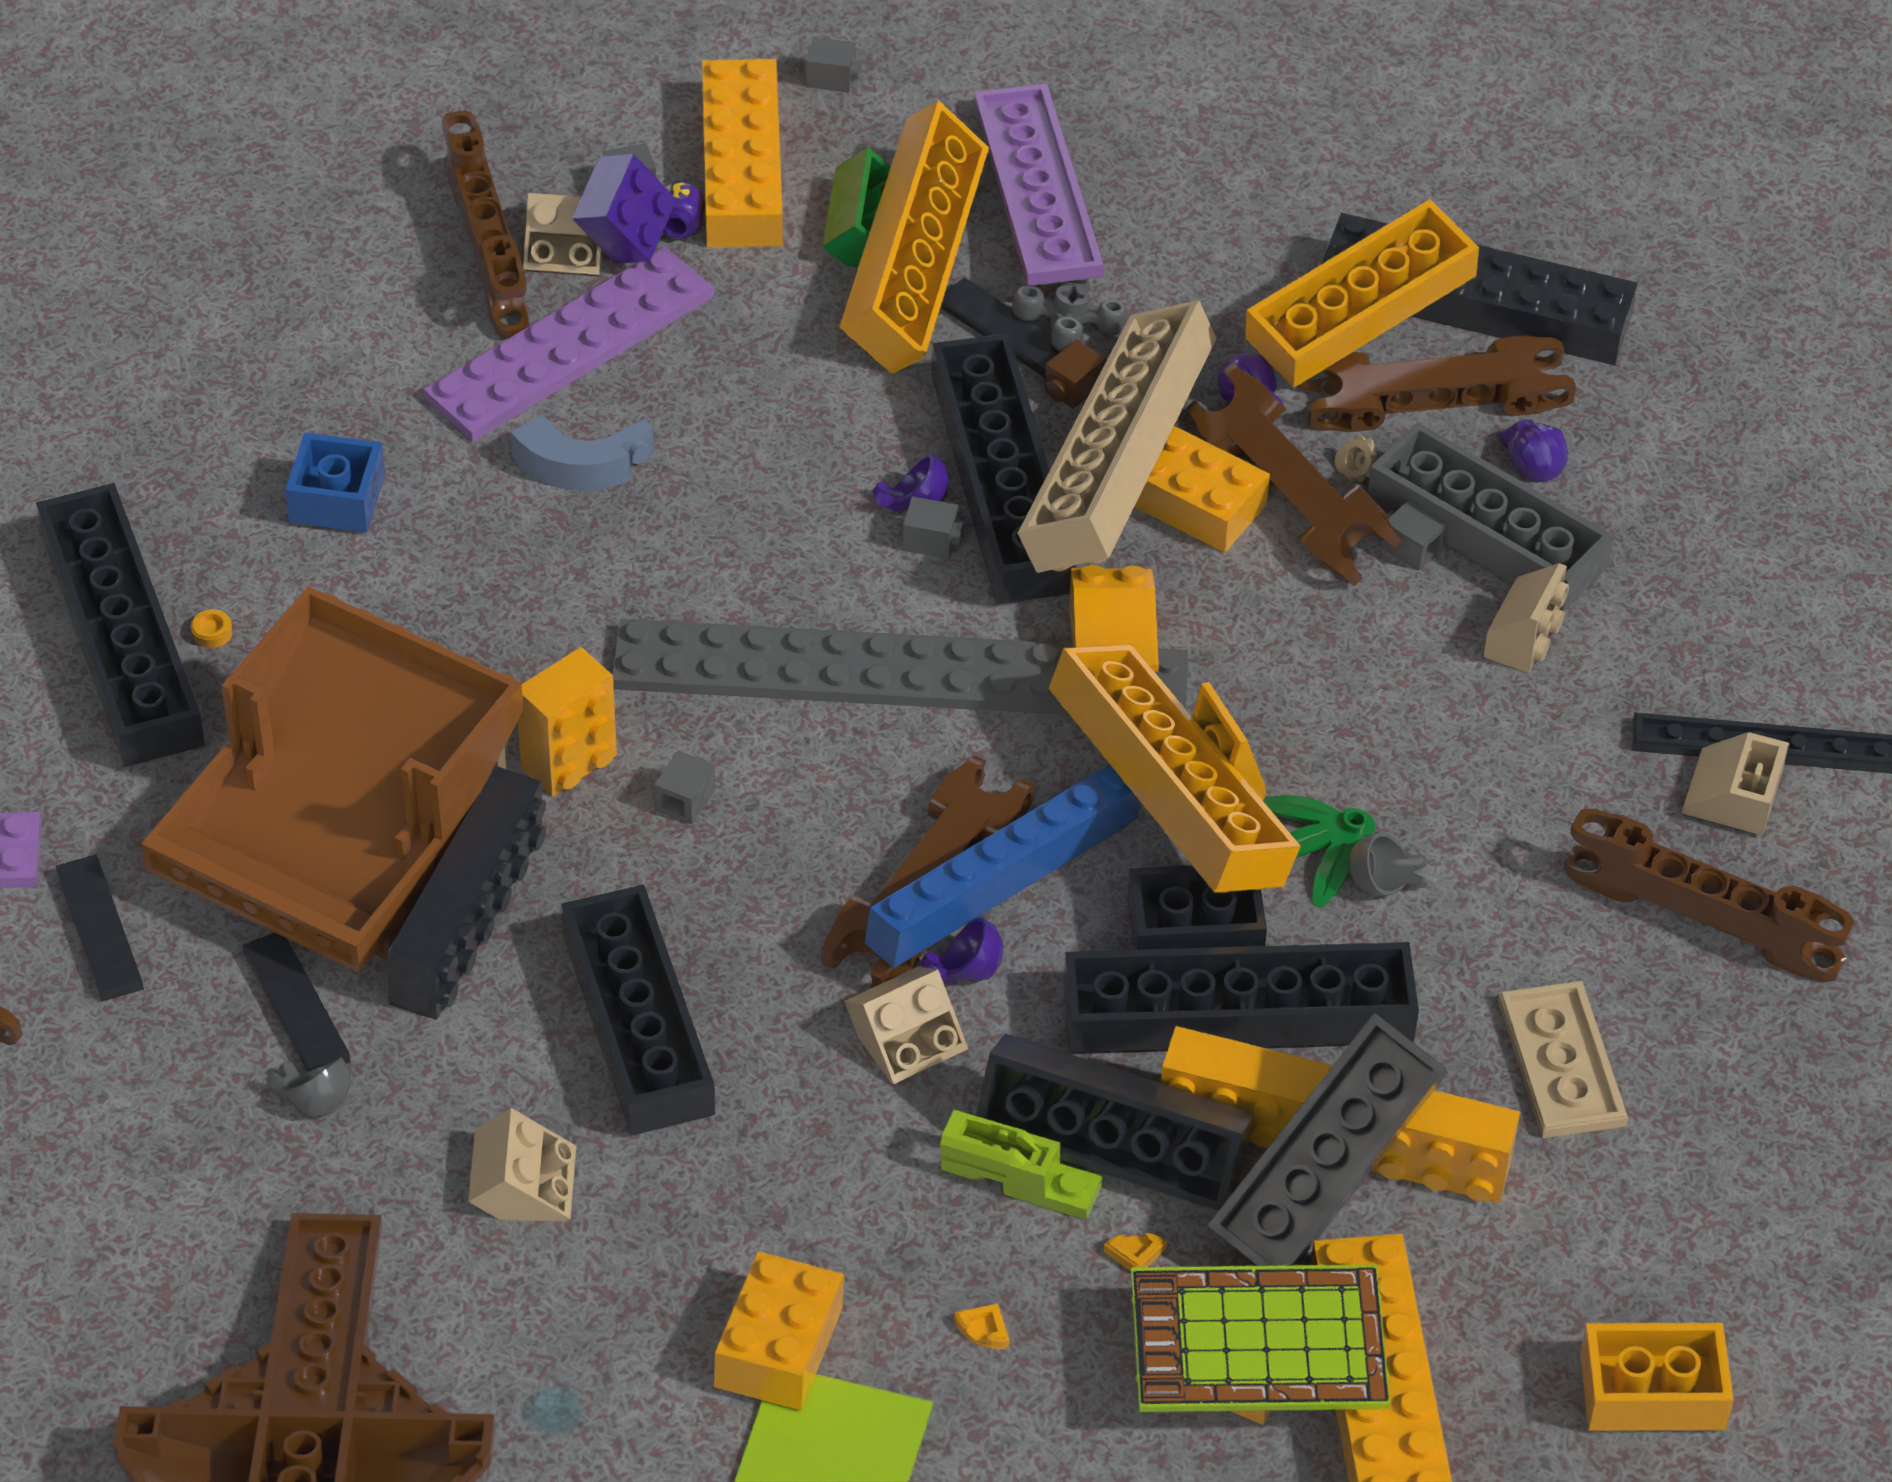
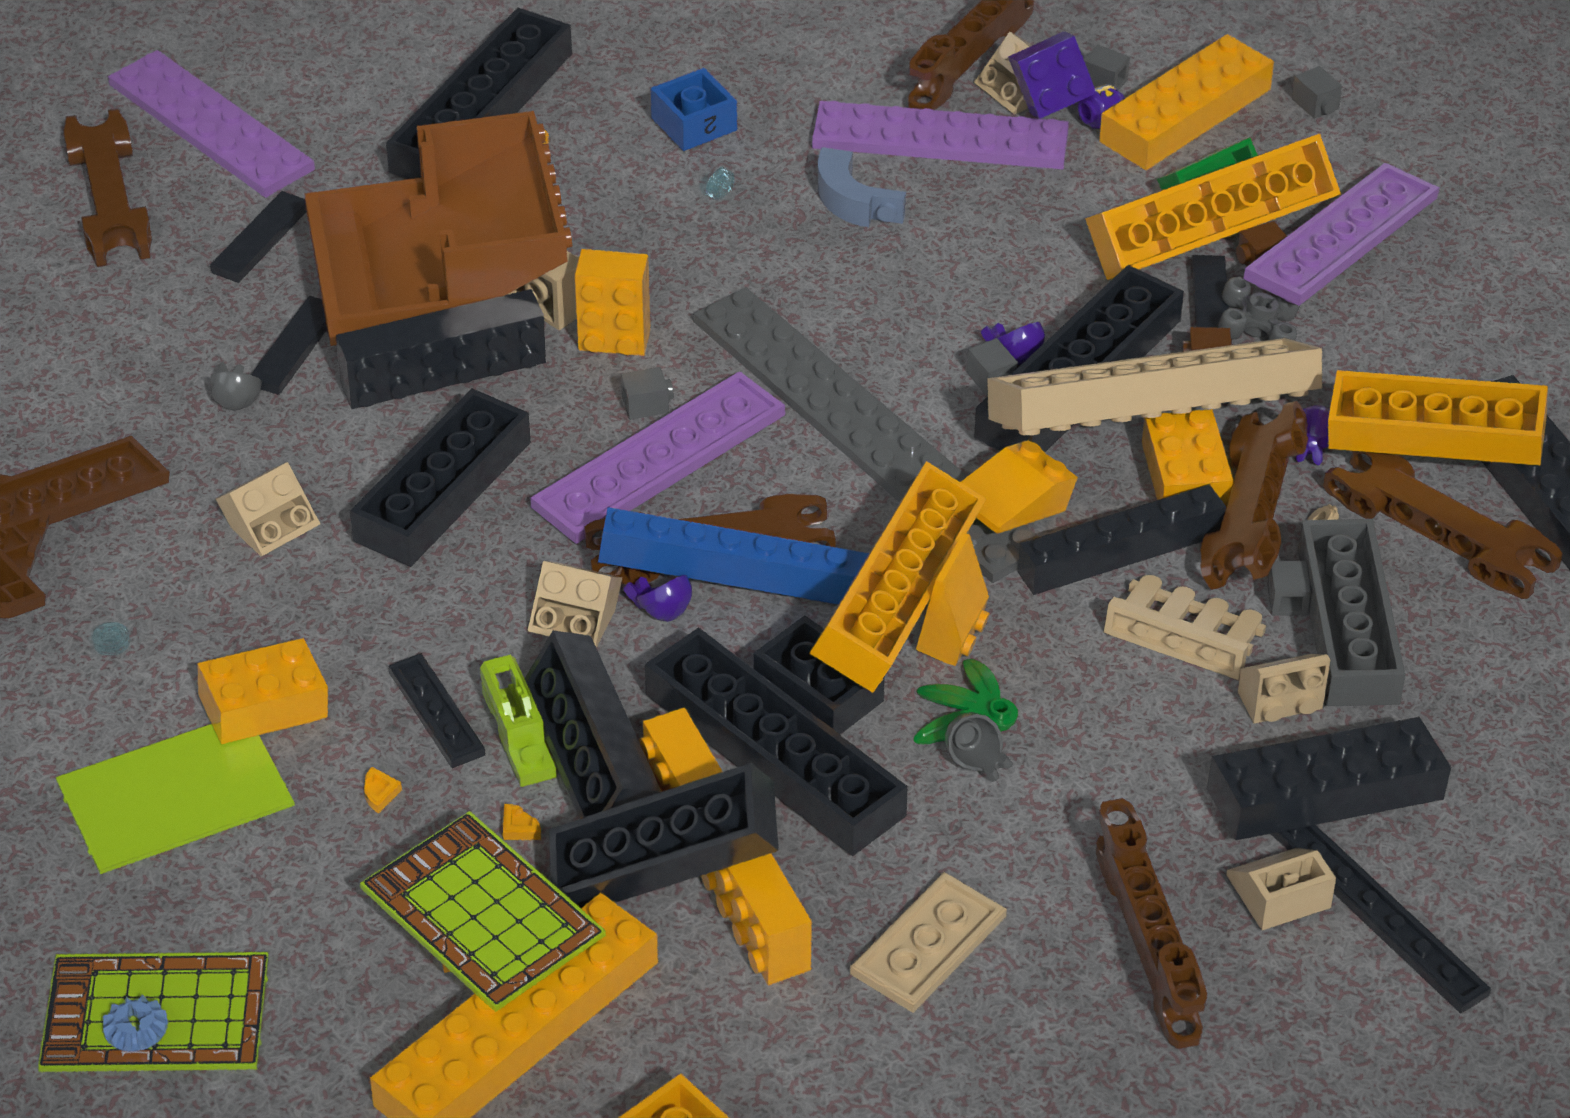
camera: 50 degrees right, 5 degrees down
(456, 537) = (720, 183): none -> clear light blue tile
(777, 837) = (659, 455): none -> medium lavender plate
(926, 1218) = (436, 710): none -> black tile
(987, 245) = (1257, 241): none -> reddish brown brick
(1243, 596) = (1120, 539): none -> black brick
(1394, 646) = (1187, 641): none -> tan fence
(1536, 450) = (1451, 604): dark purple piece -> none
(1659, 670) = (1328, 778): none -> black brick

